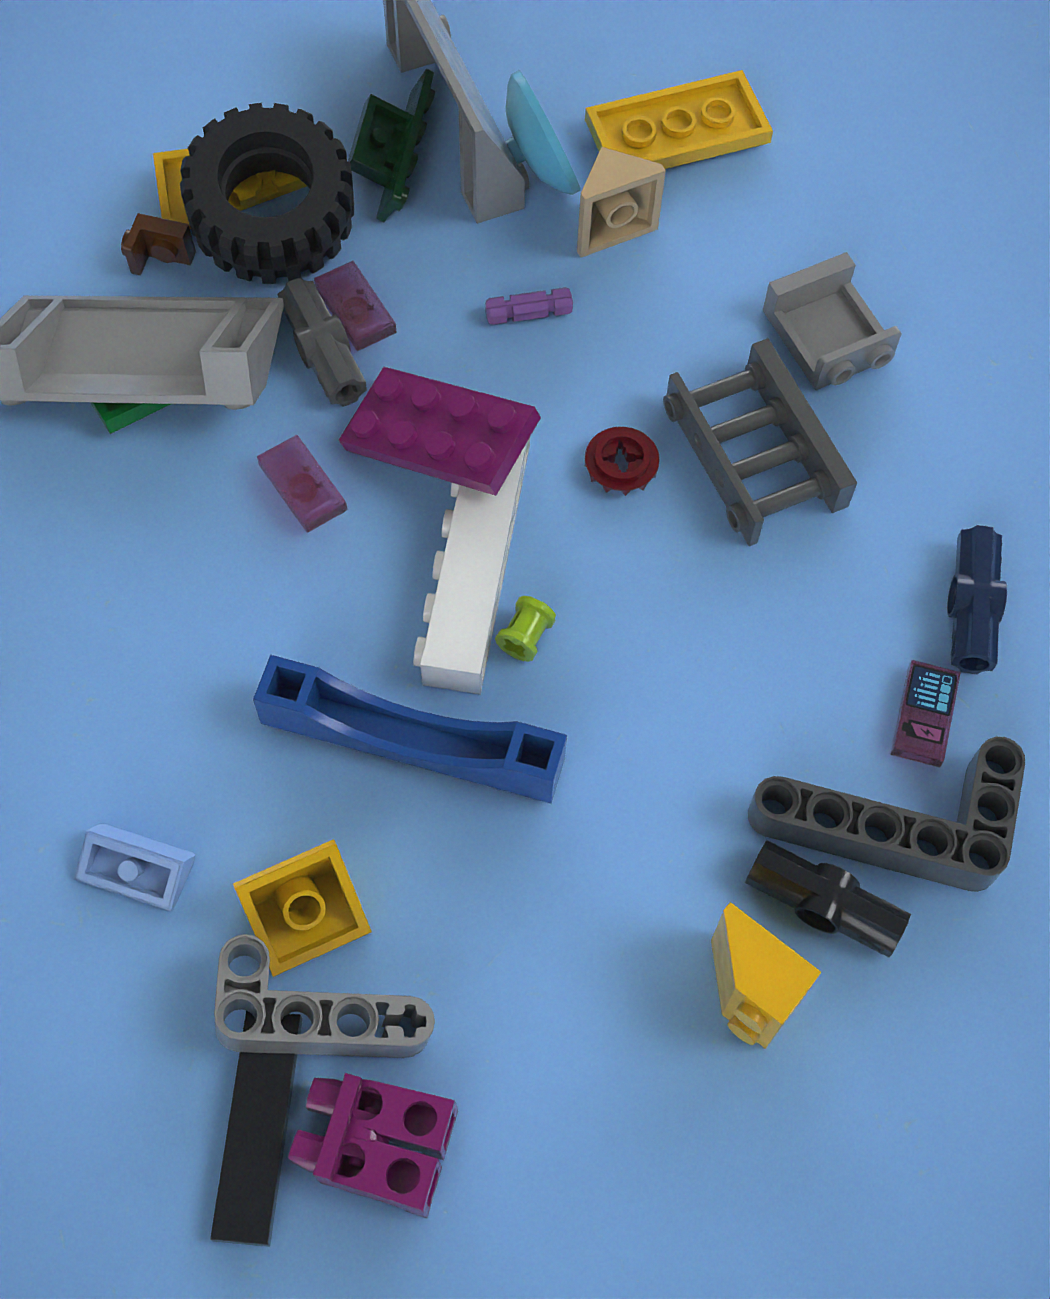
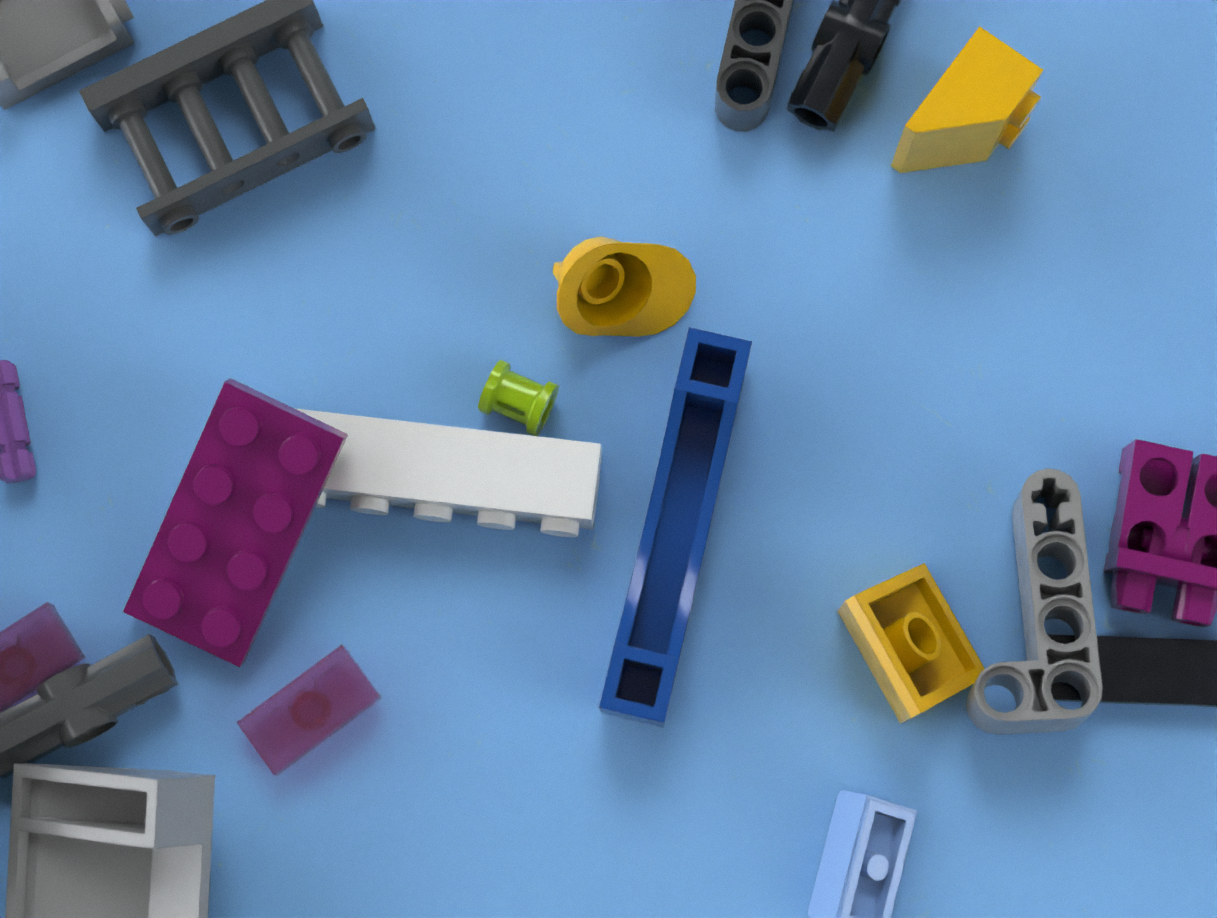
camera: 85 degrees left, 15 degrees up
(608, 701) = (623, 288): none -> yellow piece
(638, 451) = (236, 271): dark red gear -> none

